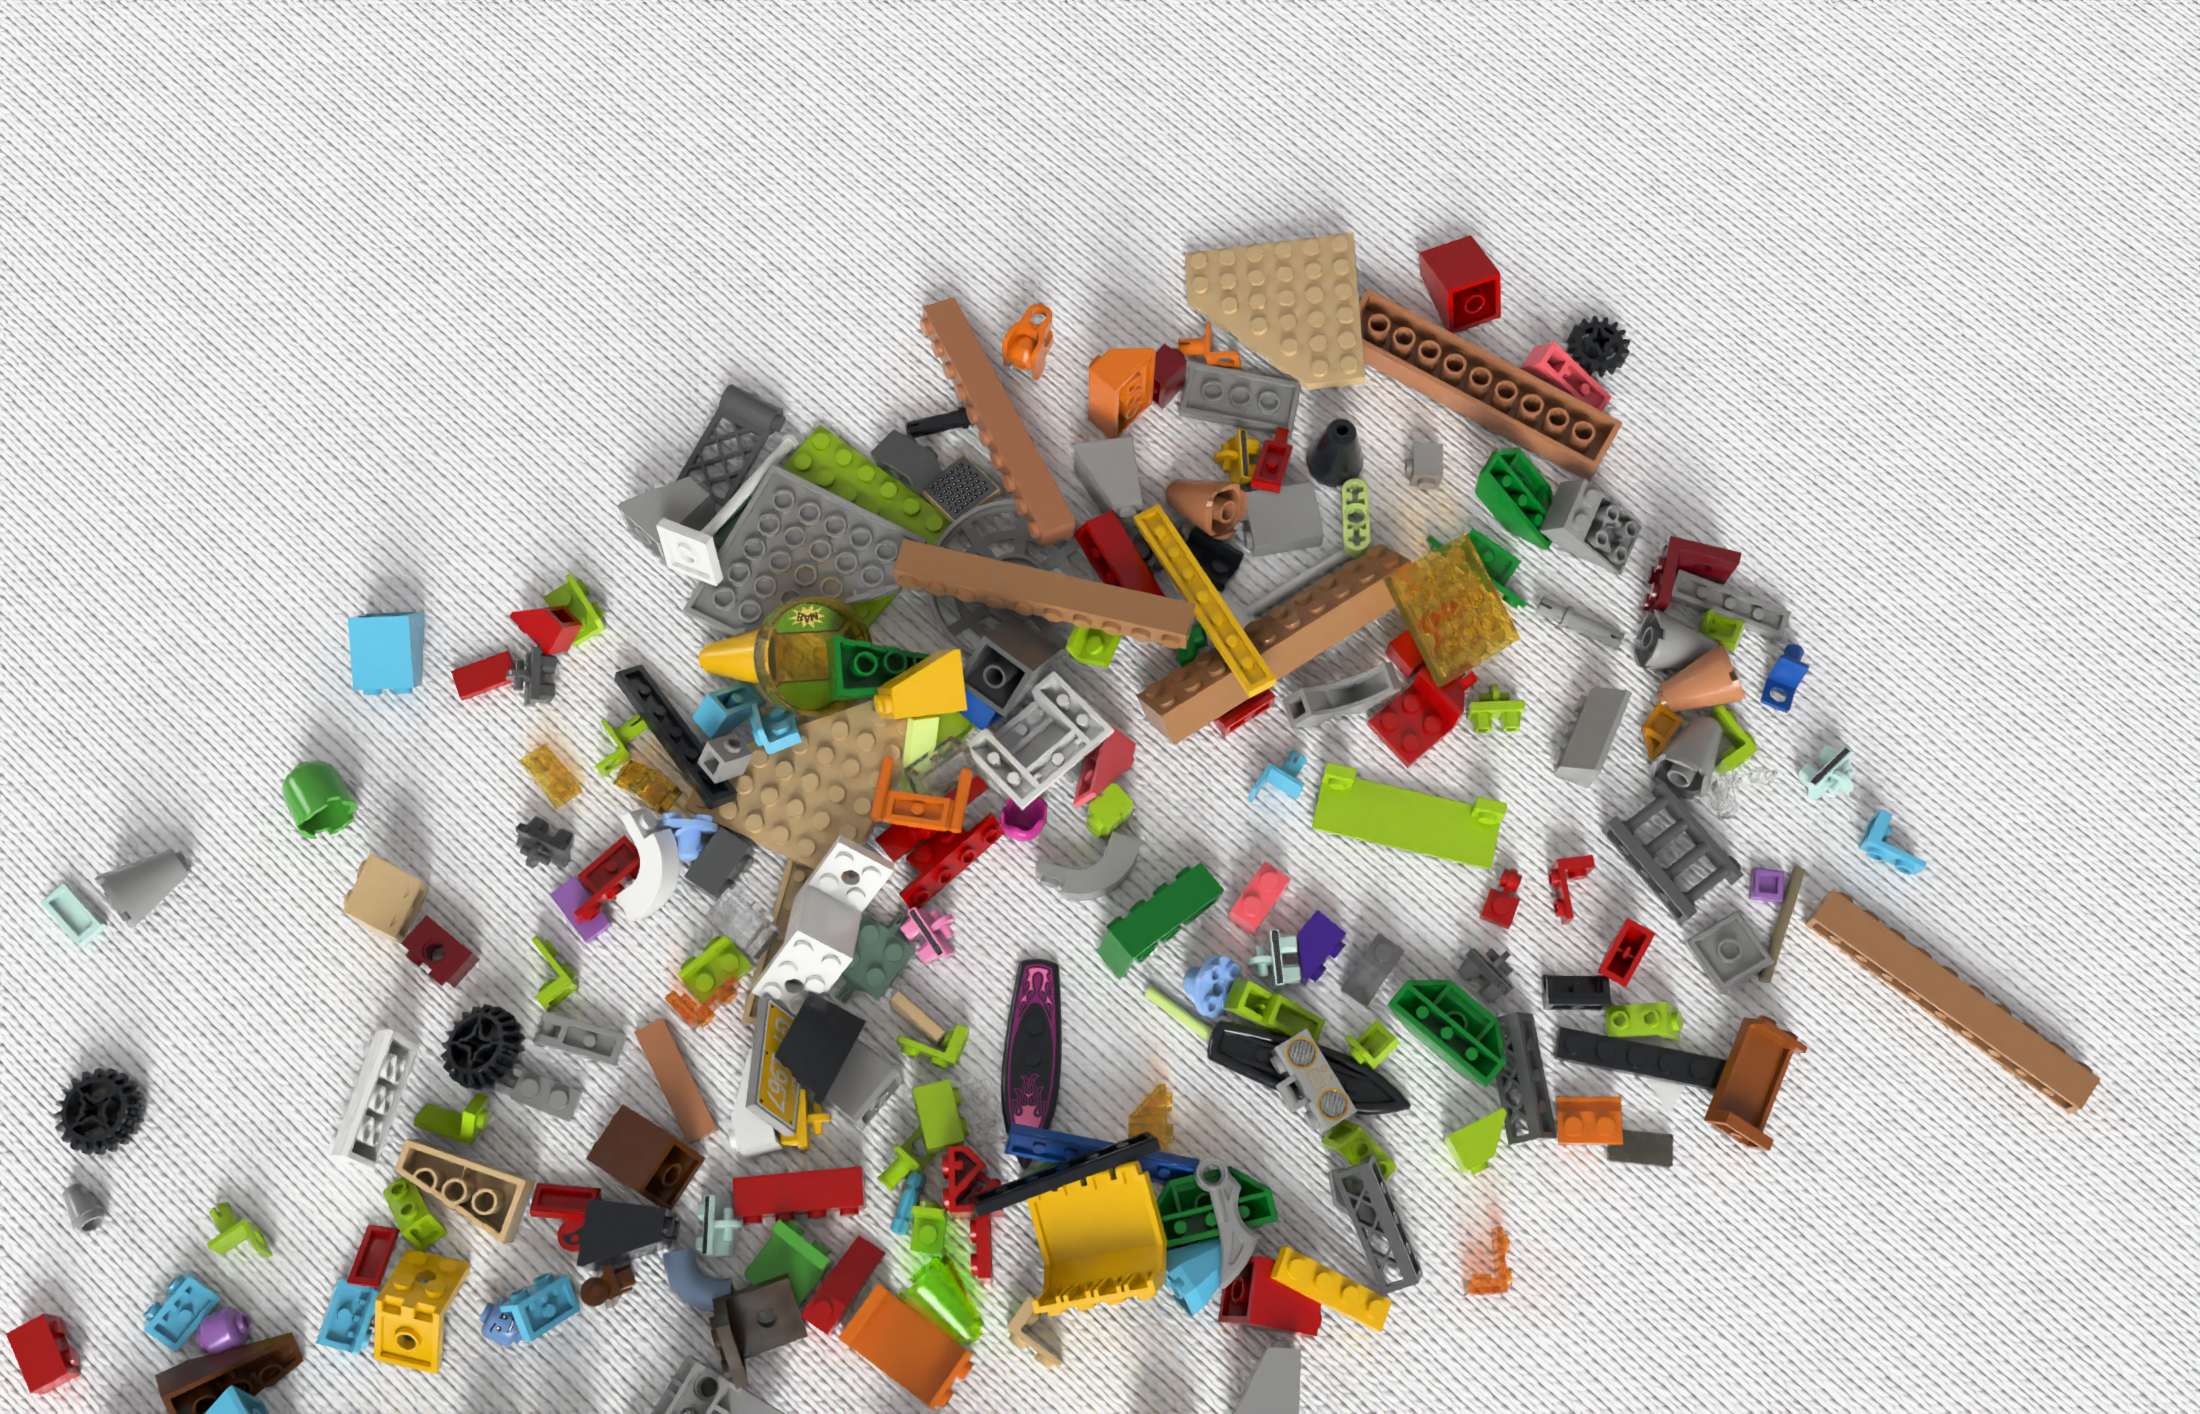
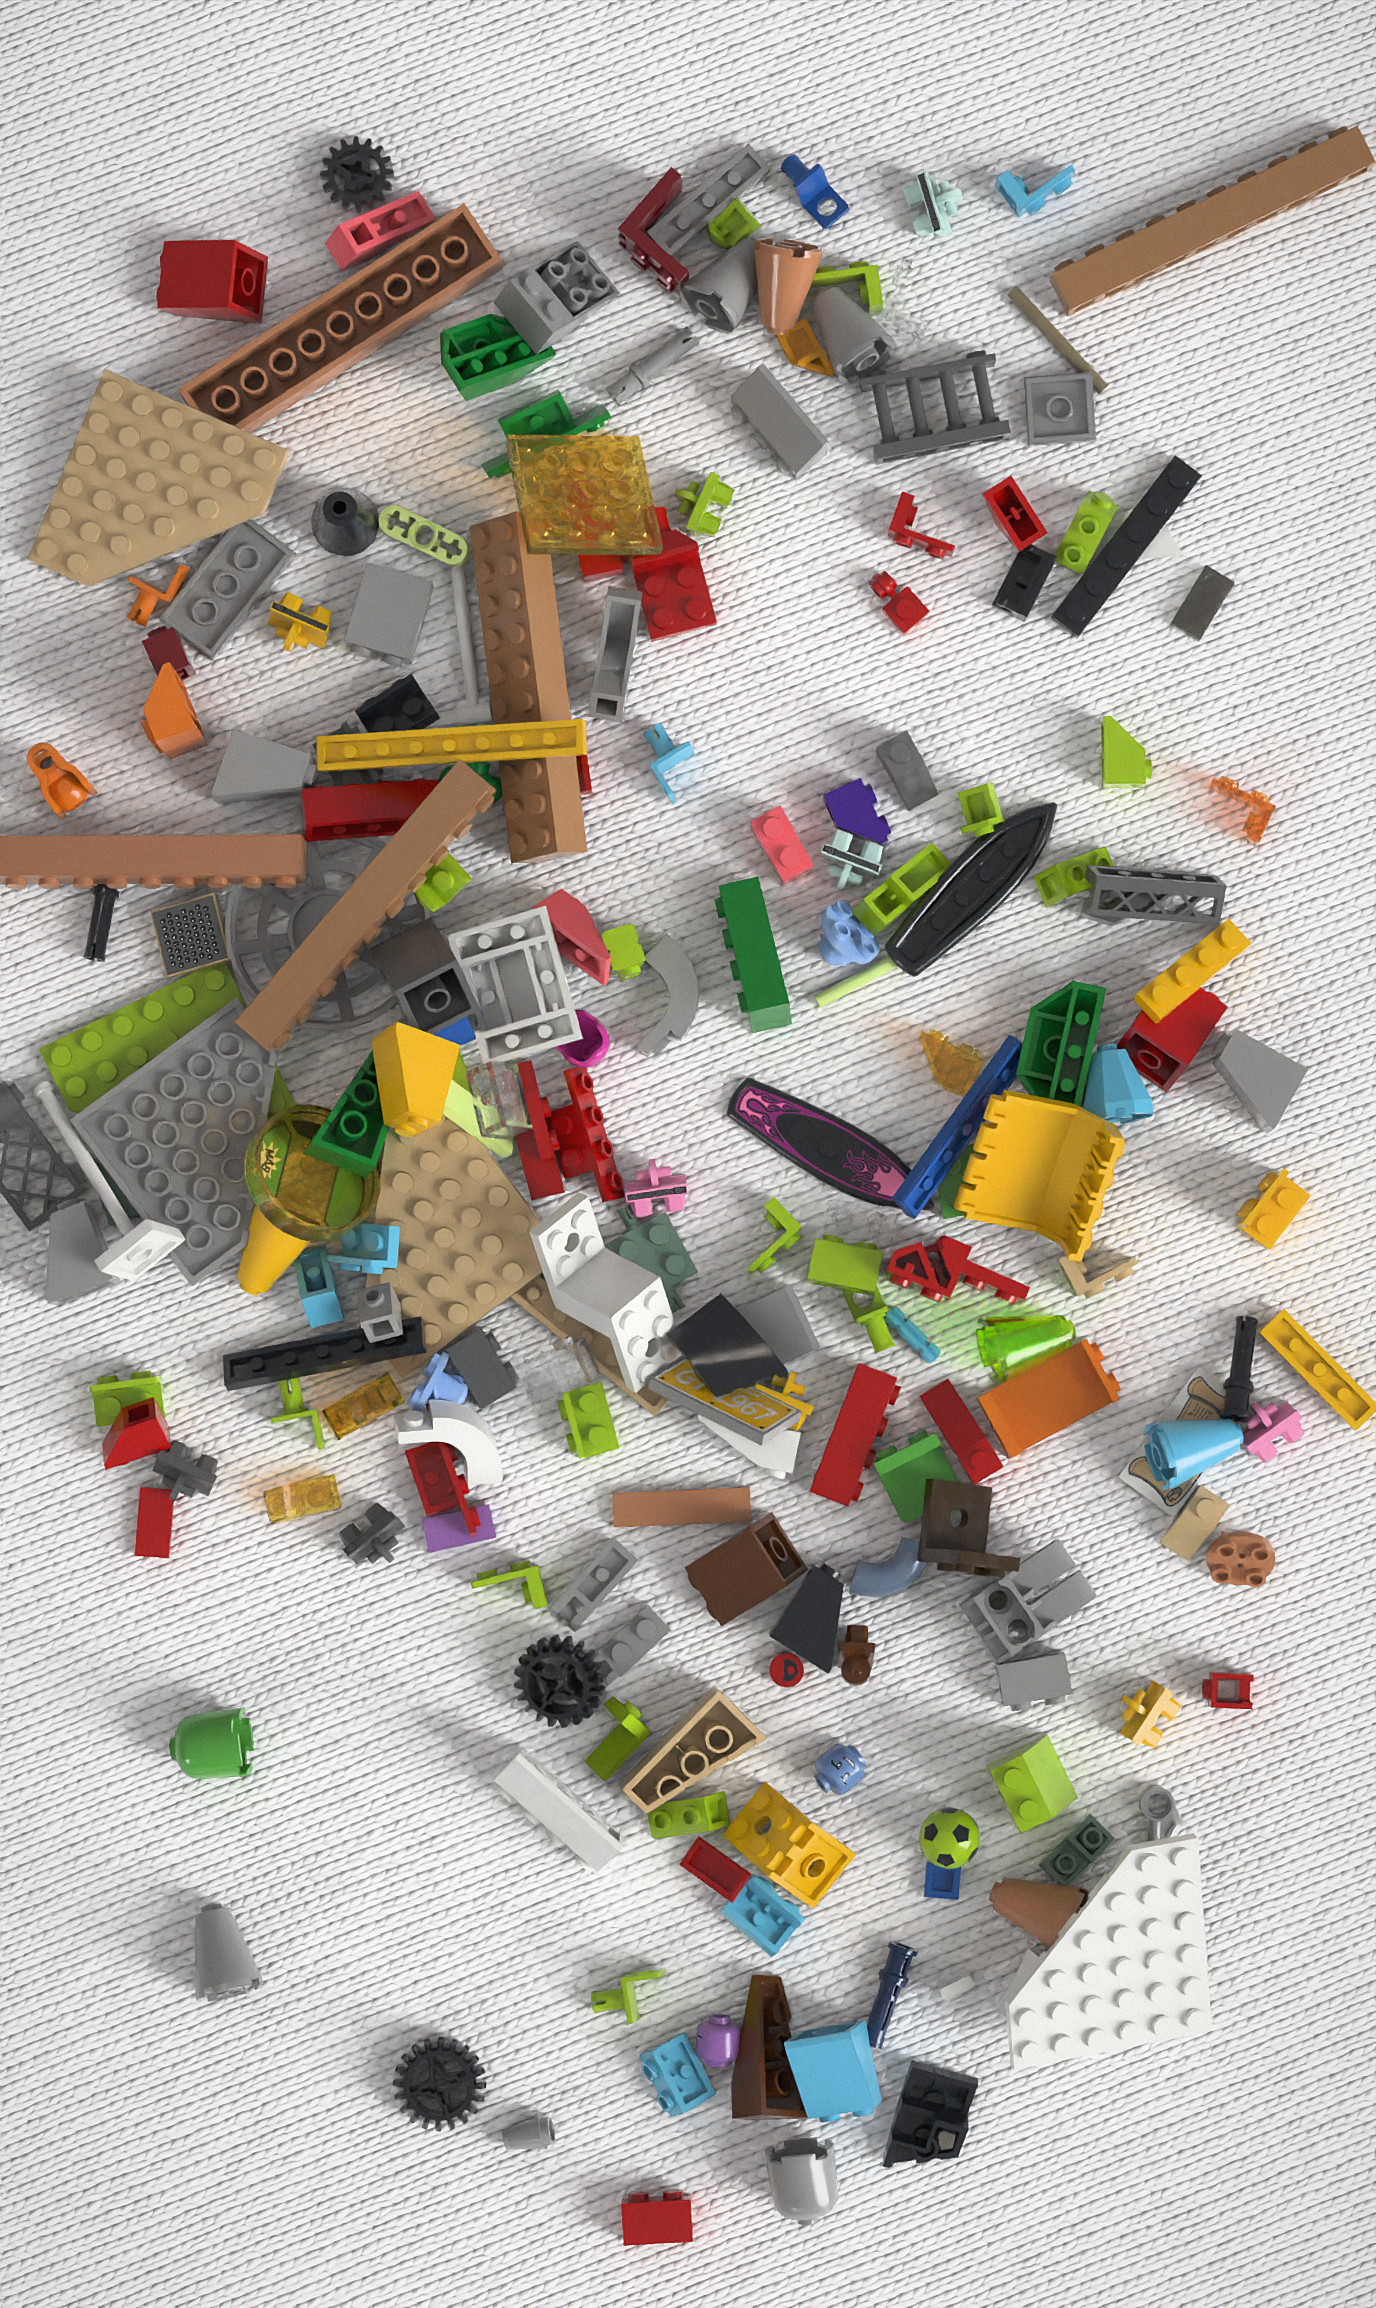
camera: 60 degrees left, 15 degrees up
(73, 914) = (214, 2041): light aqua tile -> none
(385, 899) = (363, 1715): tan slope -> none
(386, 651) = (81, 1611): medium azure slope -> none
(456, 959) = (416, 1687): dark red brick -> none
(542, 1305) = (842, 1726): medium azure bracket -> none
(562, 1201) = (750, 1664): red tile -> none
(705, 1013) = (613, 1465): clear orange bracket -> none
(718, 1226) = (847, 1526): light aqua hips -> none
(907, 461) = (132, 975): dark grey brick -> none
(917, 1018) = (737, 1242): tan tile -> none
(919, 809) = (532, 1142): orange plate -> none
(928, 1228) = (947, 1326): lime bracket -> none
(1063, 1174) = (967, 1171): black tile -> none
(1209, 505) = (340, 685): nougat cone -> none
(1235, 1237) = (1103, 1037): light grey piece -> none
(1273, 462) = (324, 591): red hinge -> none
(1321, 1090) = (1006, 883): light grey piece -> none
(1407, 818) = (771, 654): lime bracket -> none
(1425, 465) = (403, 432): light grey brick -> none
(1452, 1027) = (1003, 722): green wedge -> none
(1477, 963) = (979, 654): dark grey hips -> none
(1531, 1082) = (1060, 663): dark grey fence -> none
(1589, 1121) = (1154, 638): orange plate -> none
(1752, 1081) = (1195, 461): dark orange panel -> none
(1766, 885) = (1012, 332): medium lavender tile -> none

